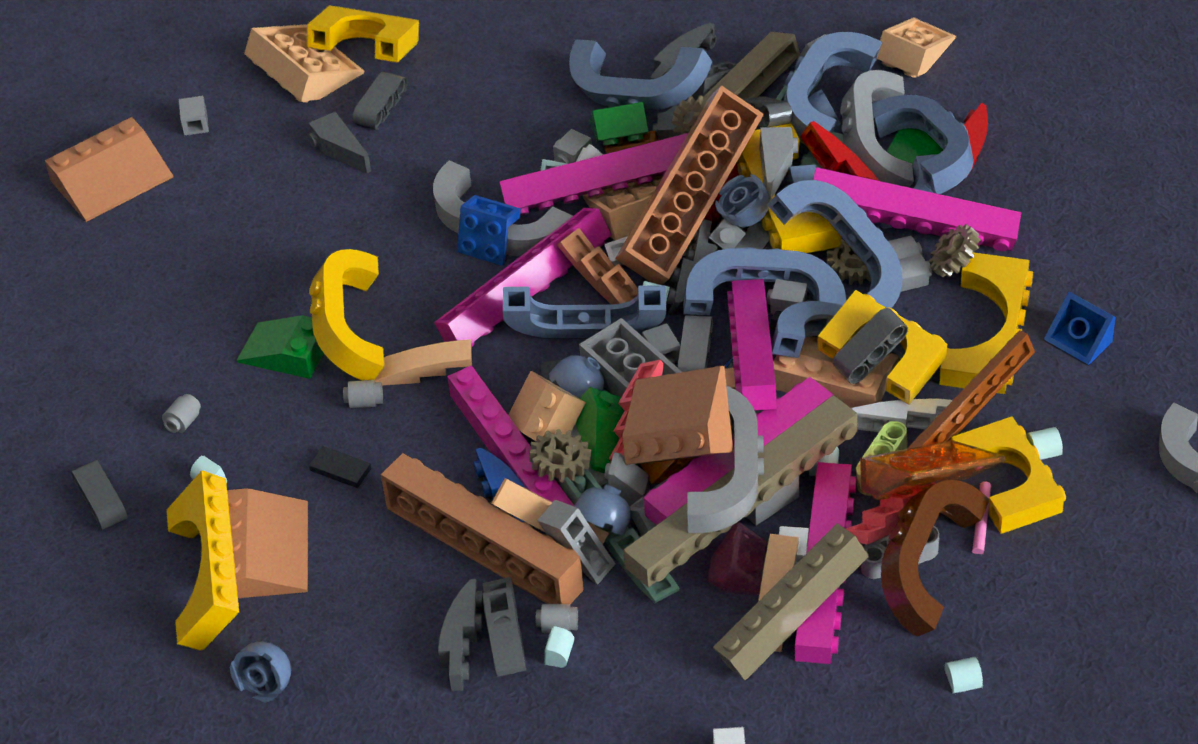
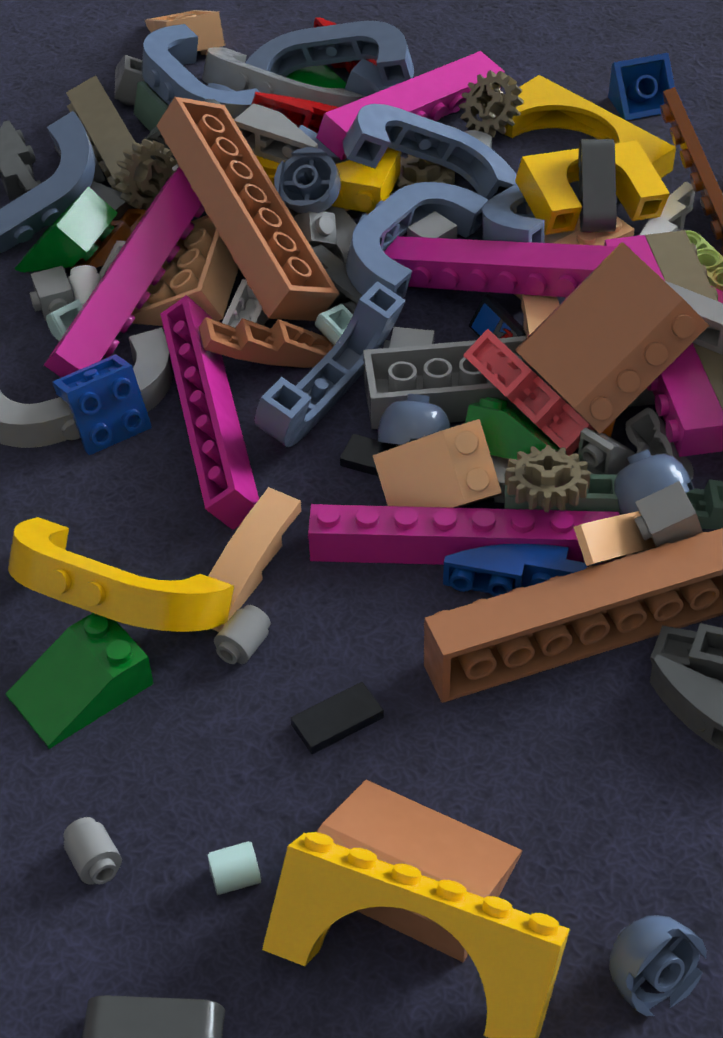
camera: 60 degrees left, 0 degrees up
(695, 343) = (424, 315): light grey beam -> none

